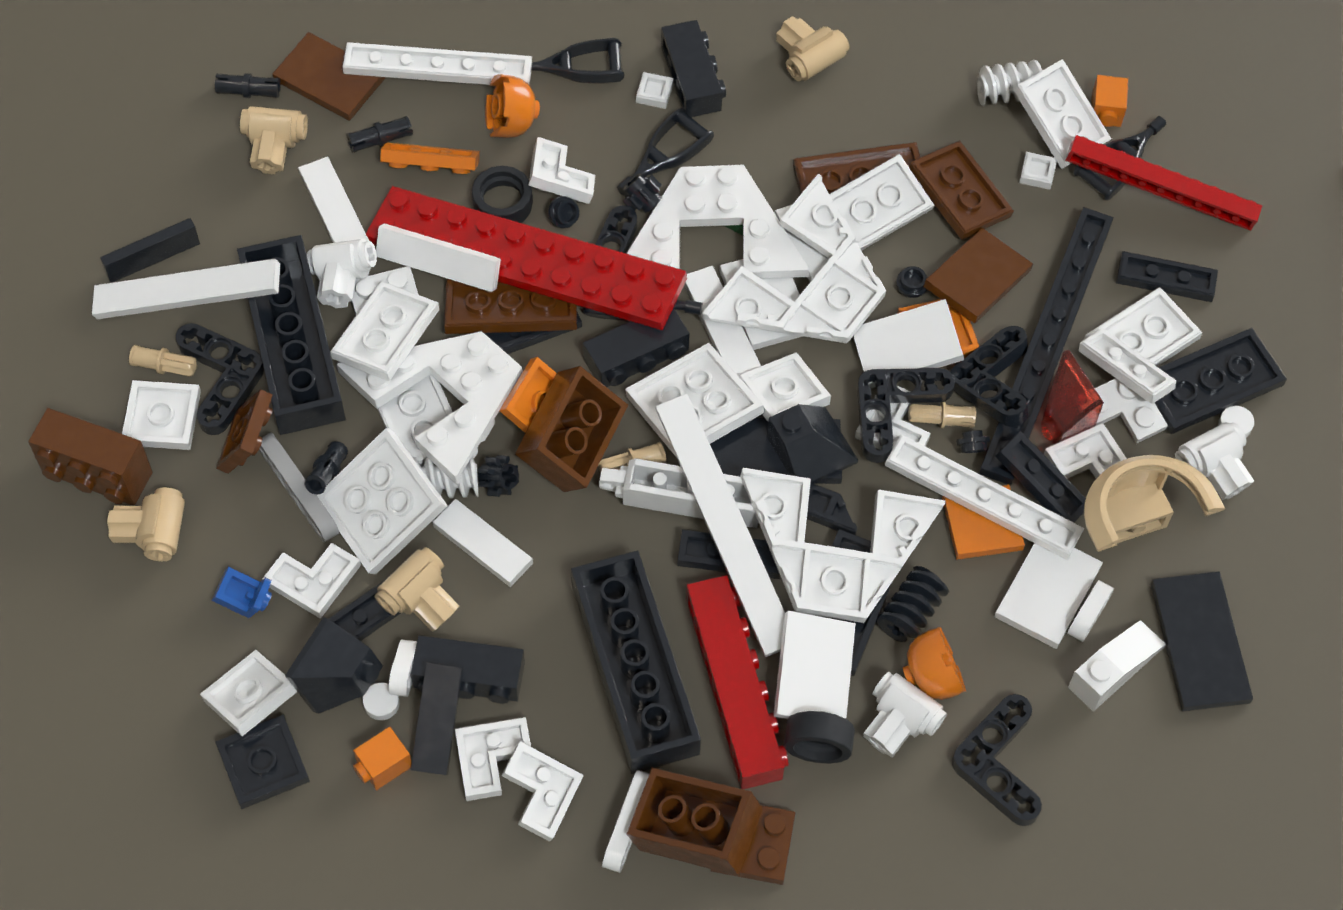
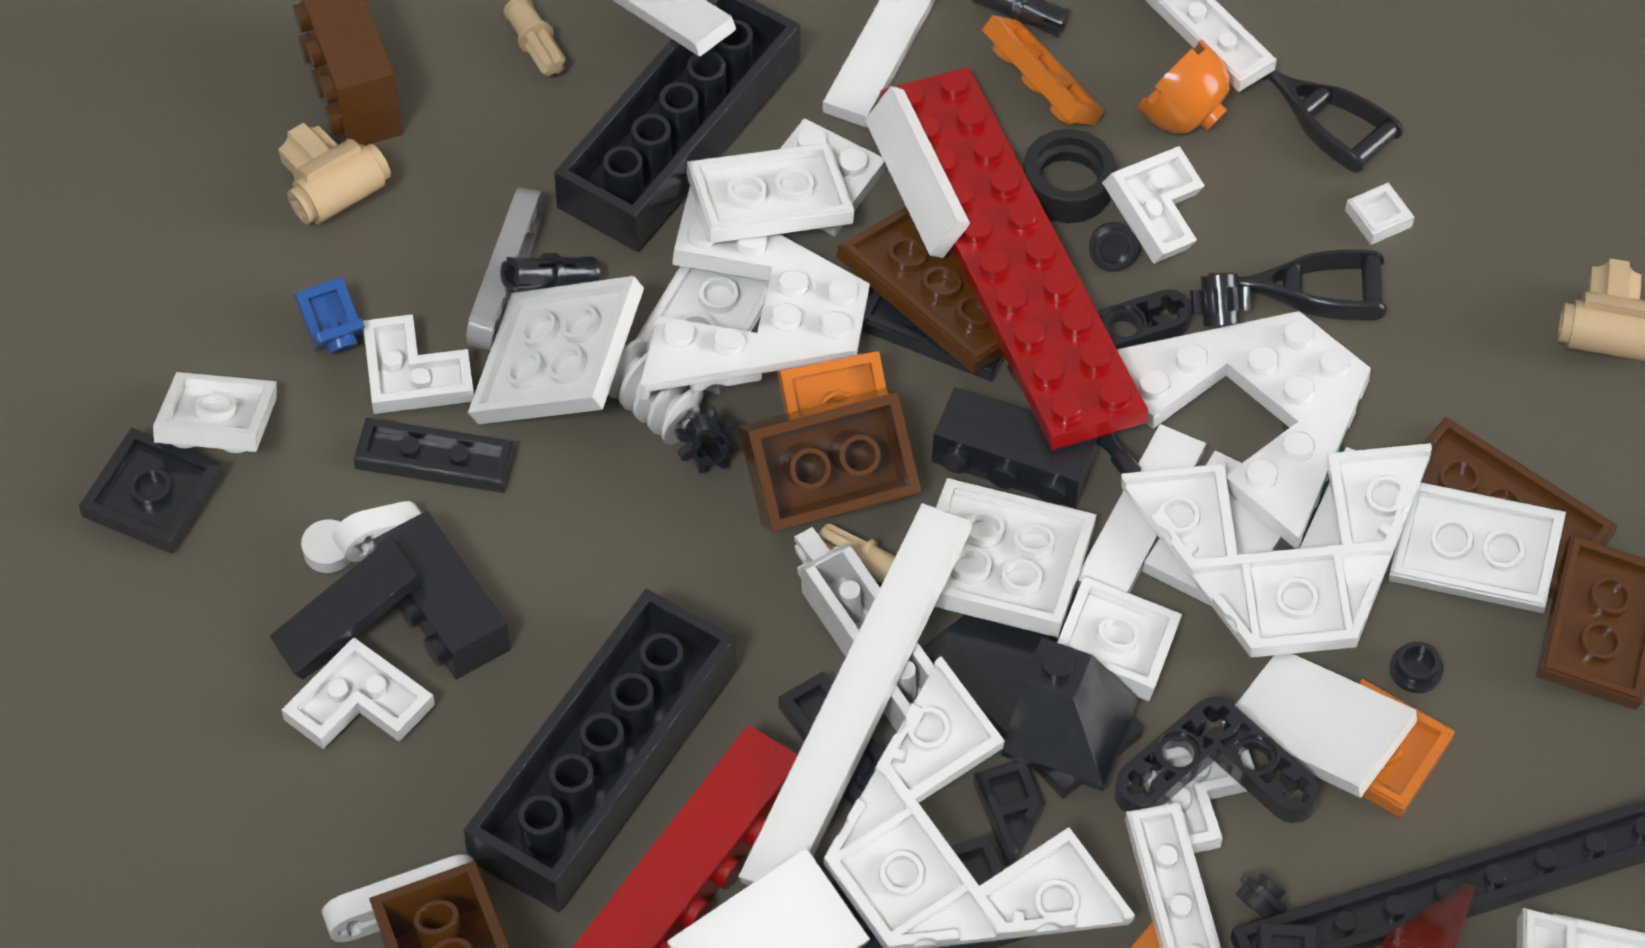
camera: 50 degrees right, 5 degrees down
(162, 414) = (470, 85): white plate -> none
(232, 374) = (583, 110): black beam -> none
(244, 432) = (530, 161): reddish brown plate -> none
(333, 668) = (308, 459): black slope -> none
(338, 268) = (804, 92): white piece -> none
(381, 759) = (254, 595): orange brick -> none
(418, 590) = (483, 468): tan piece -> none
(483, 542) = (615, 494): white tile -> none
(551, 786) = (372, 788): white plate -> none
(692, 68) = (1446, 224): black brick -> none
(943, 415) = (1266, 835): tan axle -> none
(975, 377) = (1358, 842): black beam -> none
(978, 275) = (1503, 730): reddish brown tile -> none

